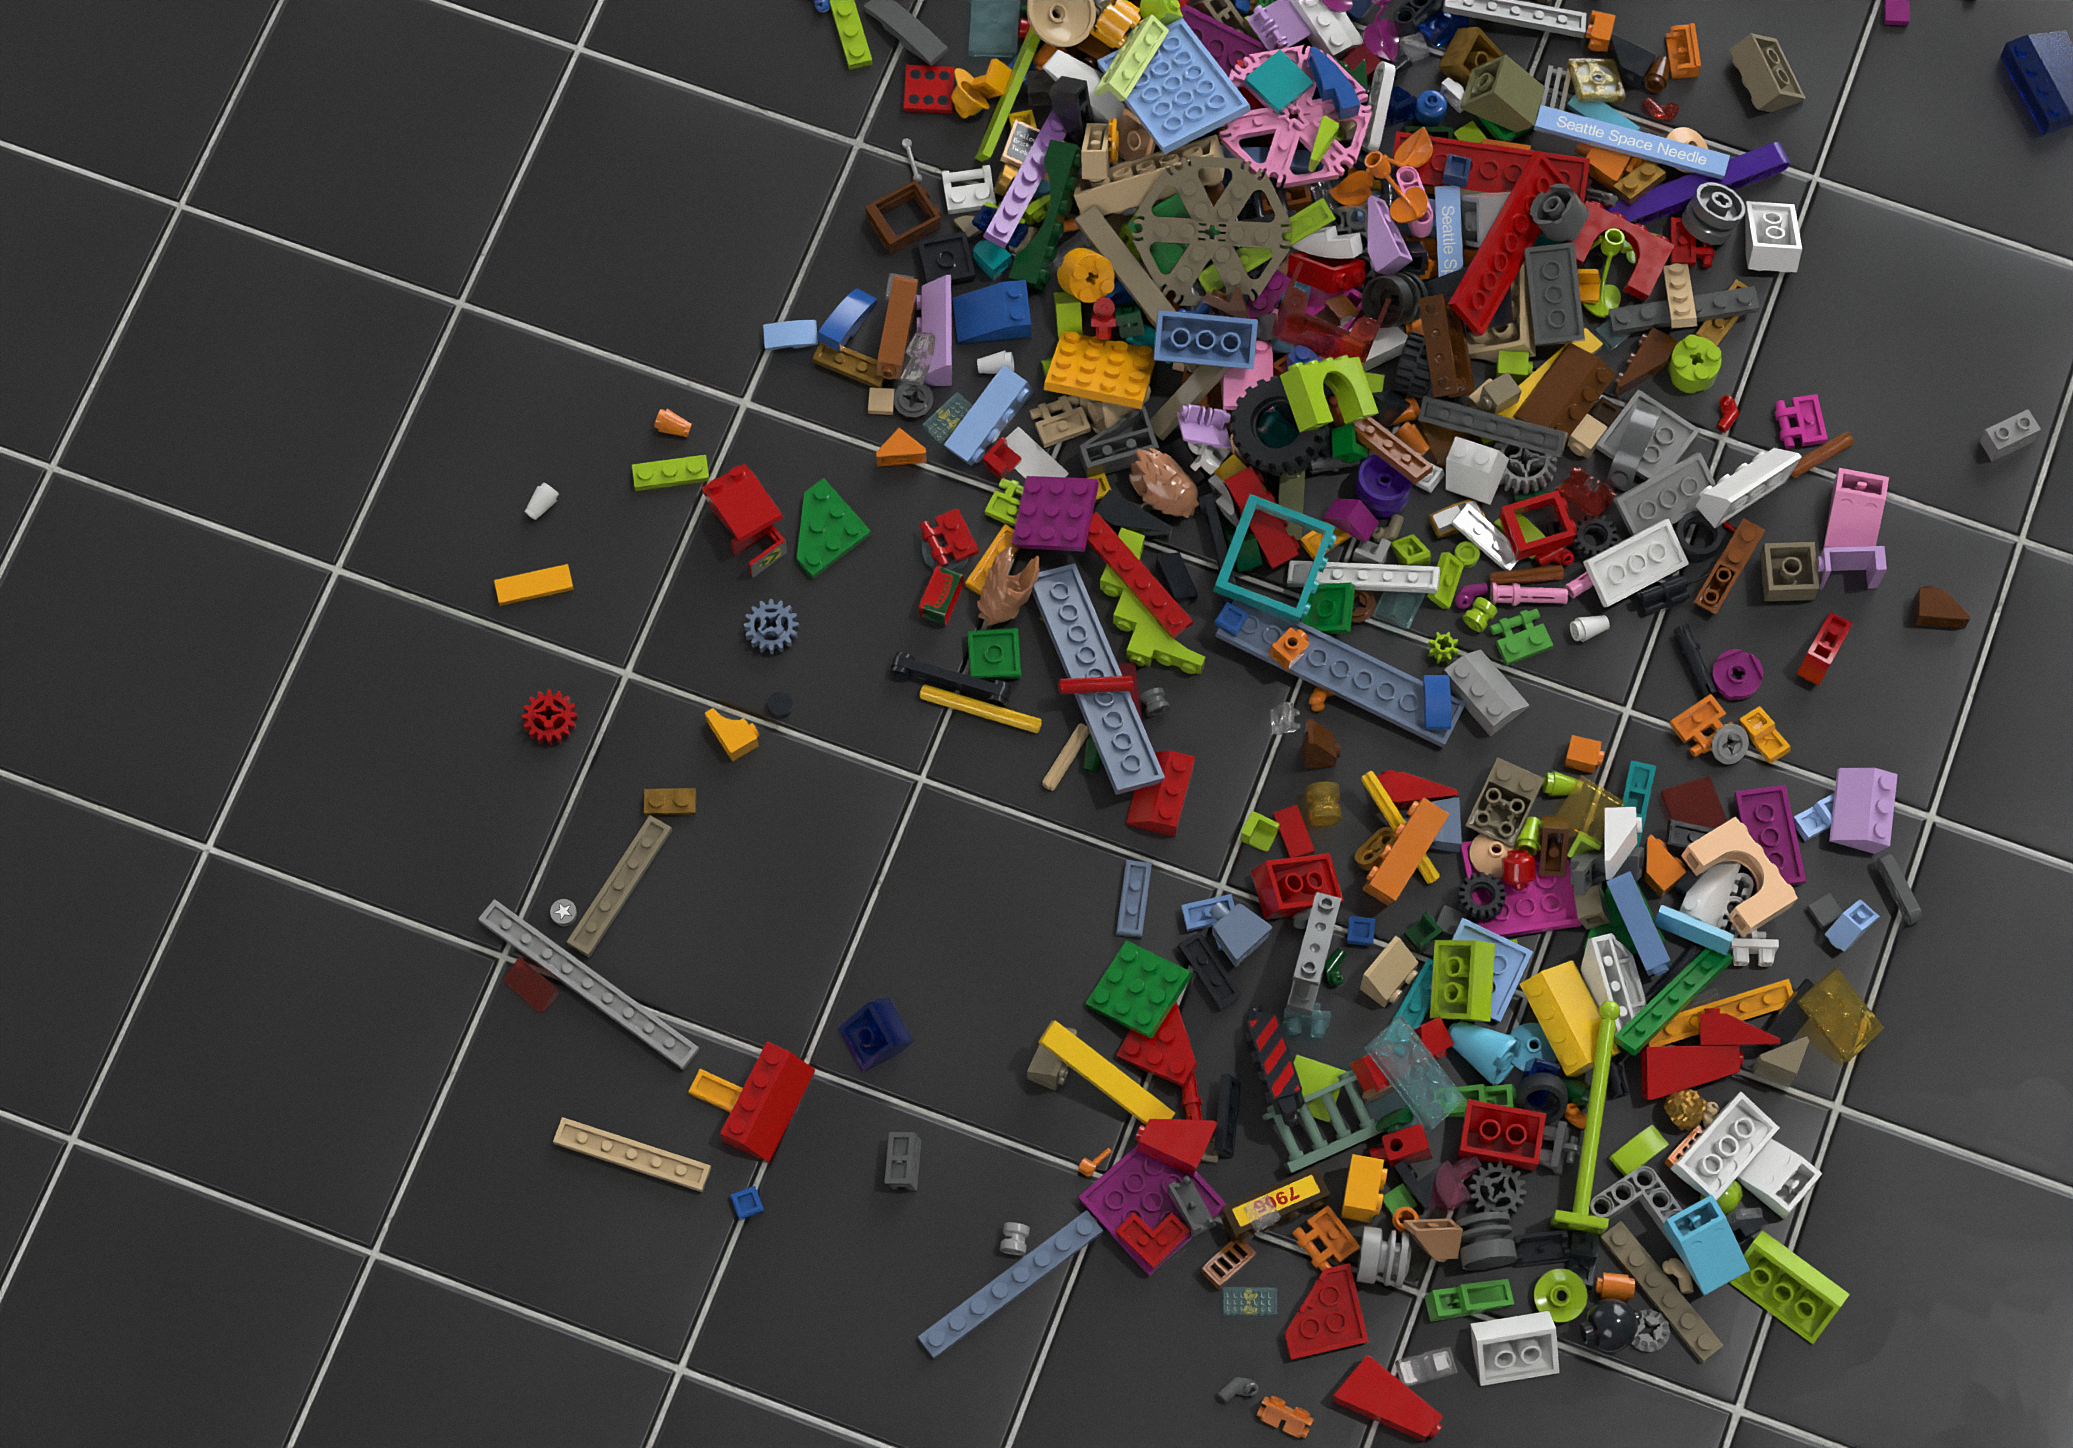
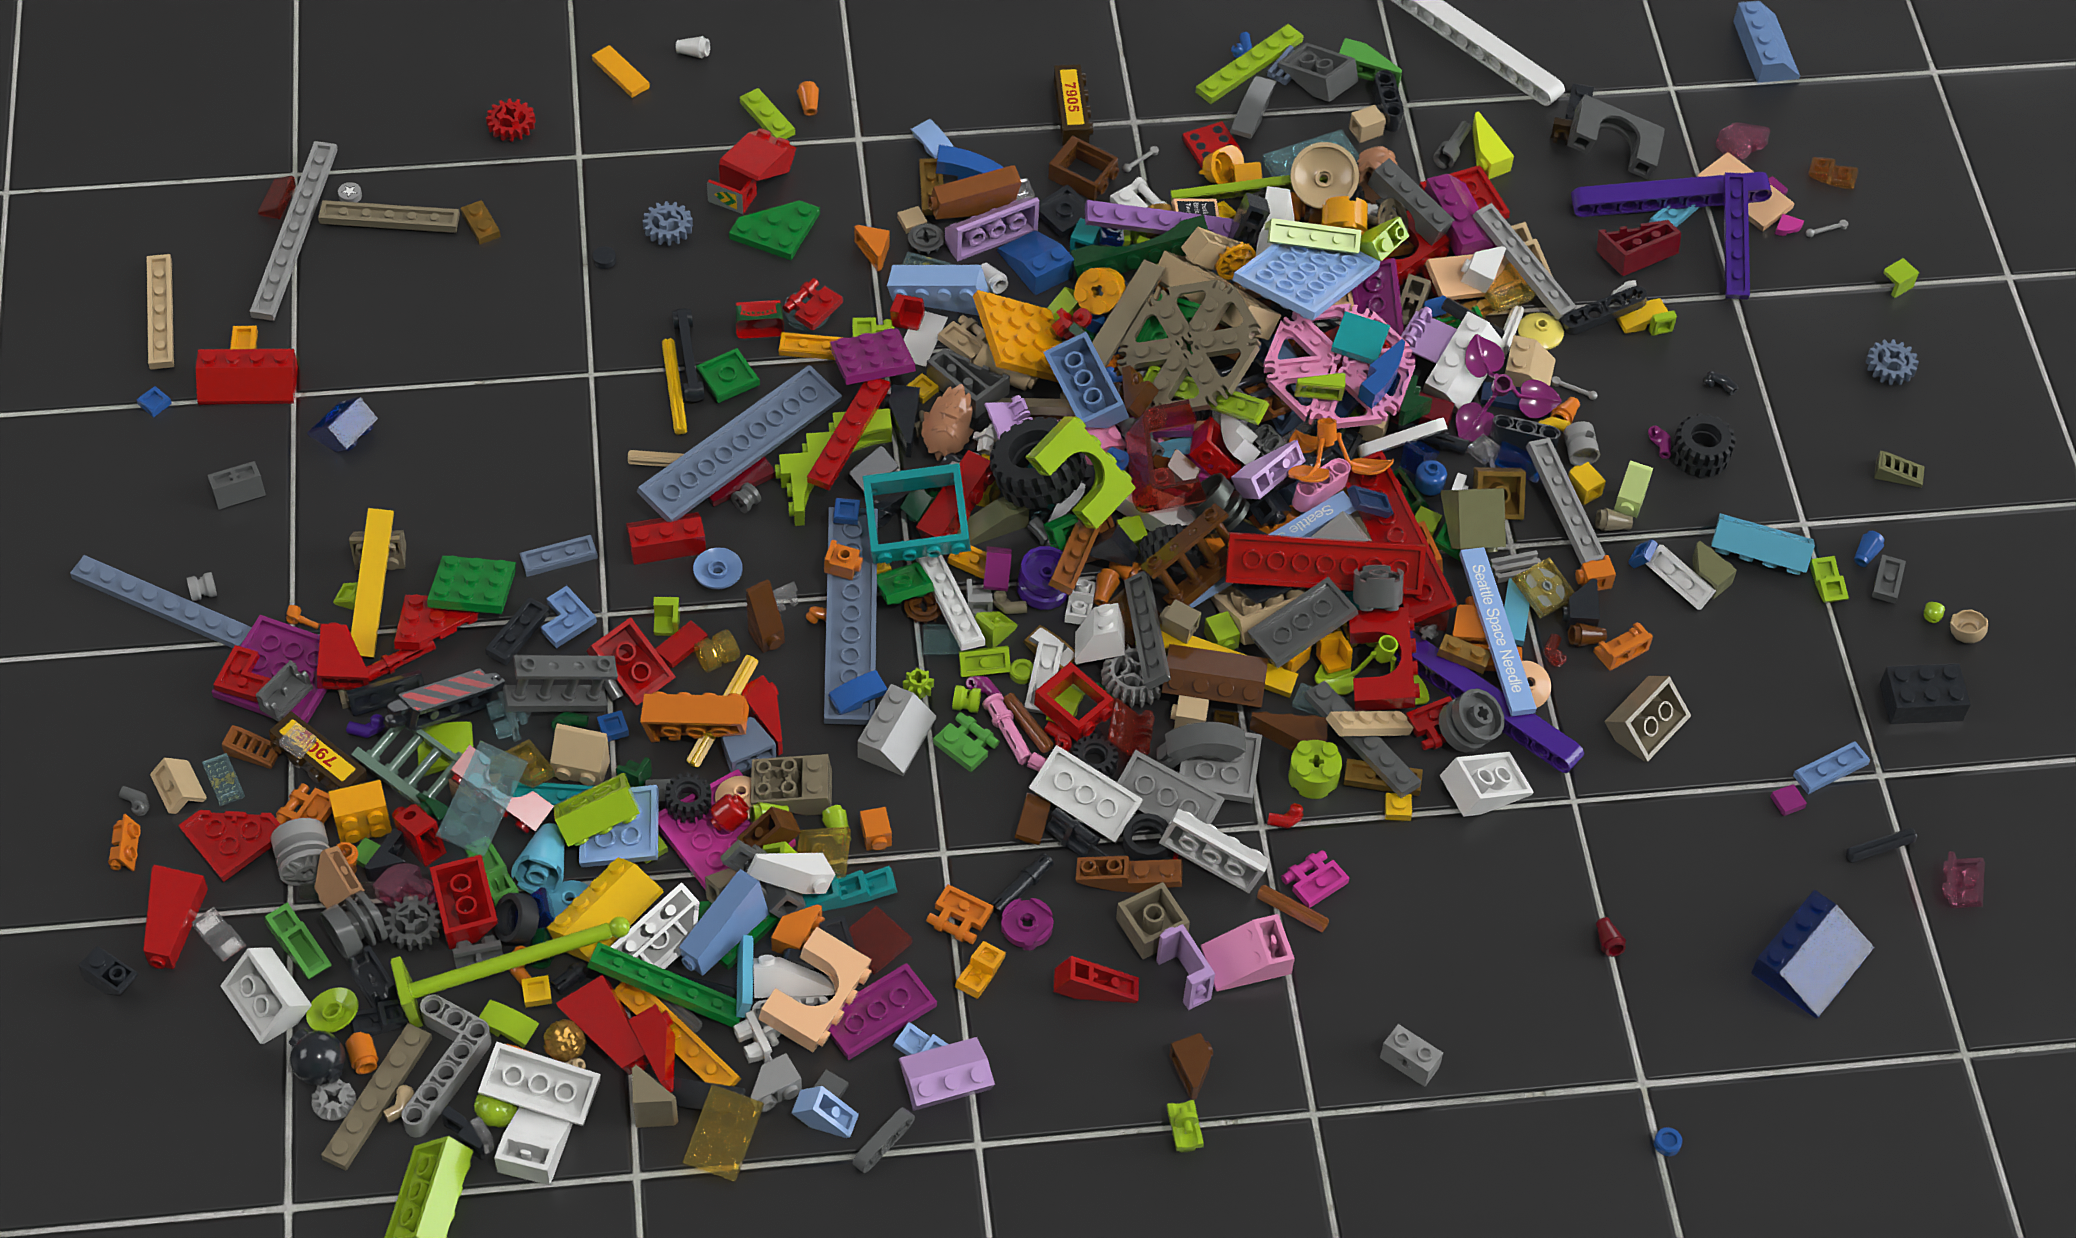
camera: 60 degrees right, 15 degrees down
(734, 735) = (556, 236): light orange arch -> none
(814, 187) = (1071, 103): none -> dark brown brick
(921, 354) = (963, 215): clear slope -> none
(1005, 593) = (784, 351): nougat head -> none
(1089, 1105) = (347, 595): none -> lime slope
(1095, 684) = (729, 439): red axle -> none
(1230, 752) = (715, 561): none -> medium blue dish
(1238, 931) = (557, 629): sand blue torso -> none
(1240, 1345) = (177, 784): none -> tan panel
(1256, 1149) = (373, 727): none -> dark purple arm
(1365, 1023) = (537, 768): none -> clear yellow wing
(1588, 627) = (1003, 786): white cone -> none
(1618, 1113) = (536, 991): none -> yellow plate
(1636, 619) = (1032, 819): none -> reddish brown slope
(1706, 1245) = (426, 1096): medium azure slope -> none
(1736, 749) = (940, 940): light grey gear -> none
(1758, 321) = (1398, 808): none -> yellow plate
(1804, 951) = (777, 1082): none -> light grey slope
(1966, 223) = (1610, 938): none -> dark red cone
(1997, 643) = (1185, 1126): none -> lime hips

